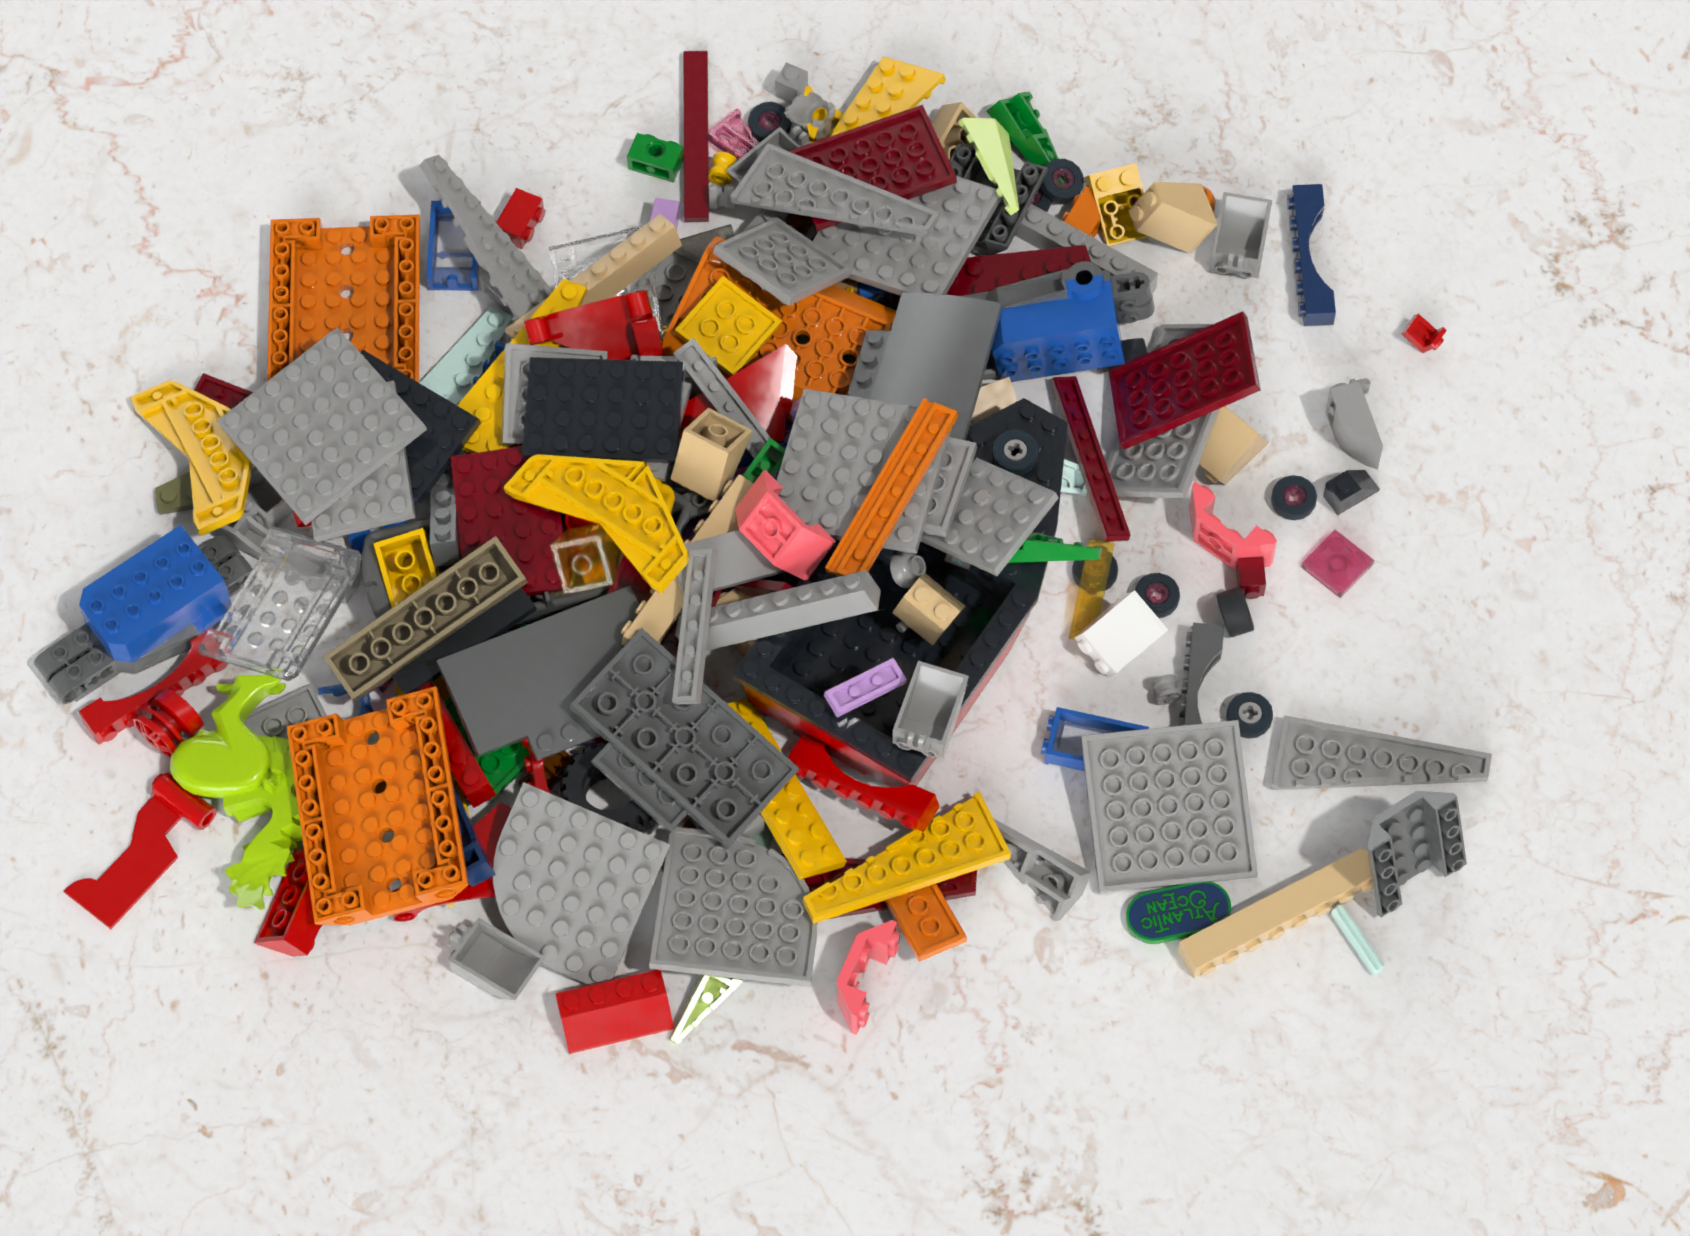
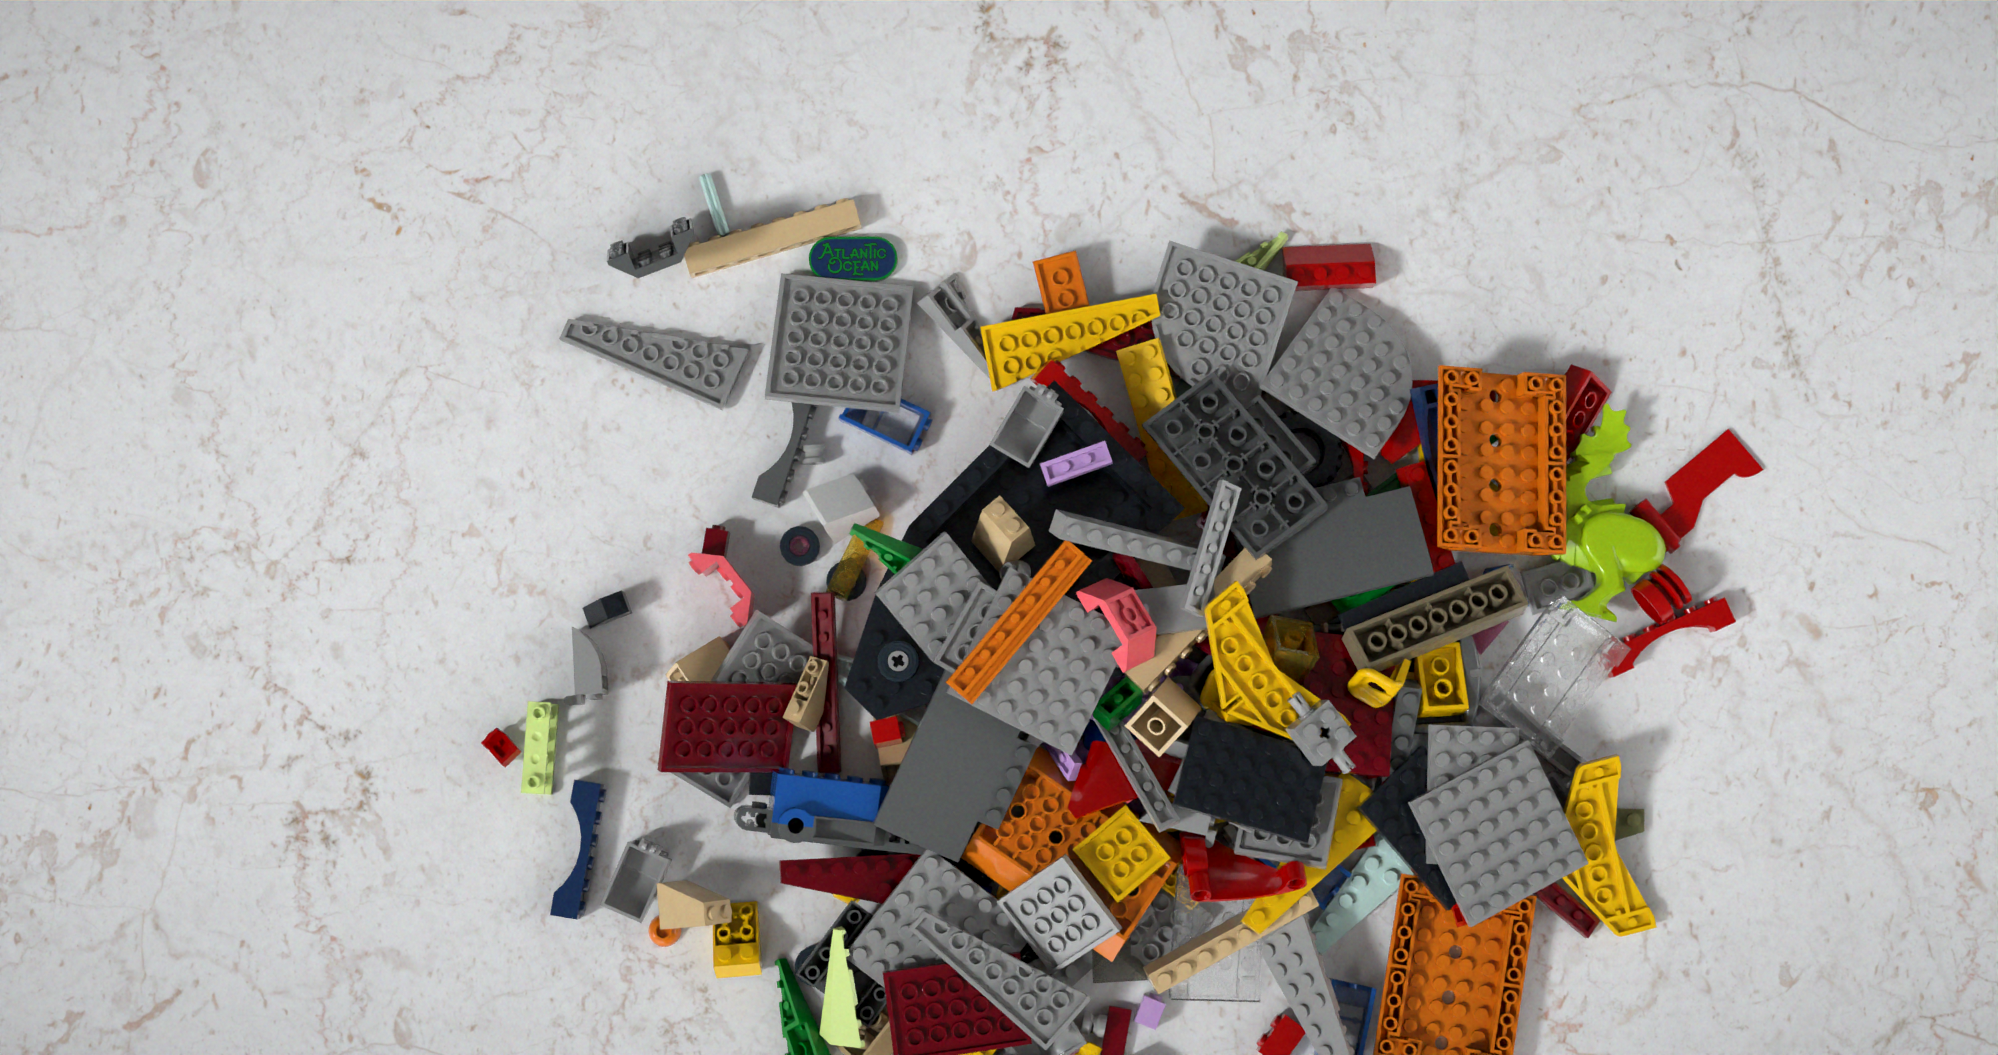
camera: 170 degrees left, 20 degrees up
(145, 612) = (1665, 703): blue piece -> none
(463, 534) = (1360, 689): none -> yellow piece
(492, 959) = (1419, 326): light grey piece -> none
(536, 460) = (1306, 732): none -> light grey brick
(875, 944) = (1105, 273): coral slope -> none
(1008, 393) = (887, 732): none -> red brick
(1049, 232) = (782, 895): light grey brick -> none
(1073, 180) = (771, 971): black bush -> none
(1084, 213) = (772, 929): orange slope -> none
(1104, 433) = (809, 696): none -> tan slope
(1235, 612) = (738, 511): black tyre -> none
(1260, 708) = (740, 426): black bush -> none
(1293, 486) = (670, 614): black bush -> none
(1337, 563) = (638, 544): clear pink plate -> none
(1381, 332) = (540, 748): none -> yellowish green fence

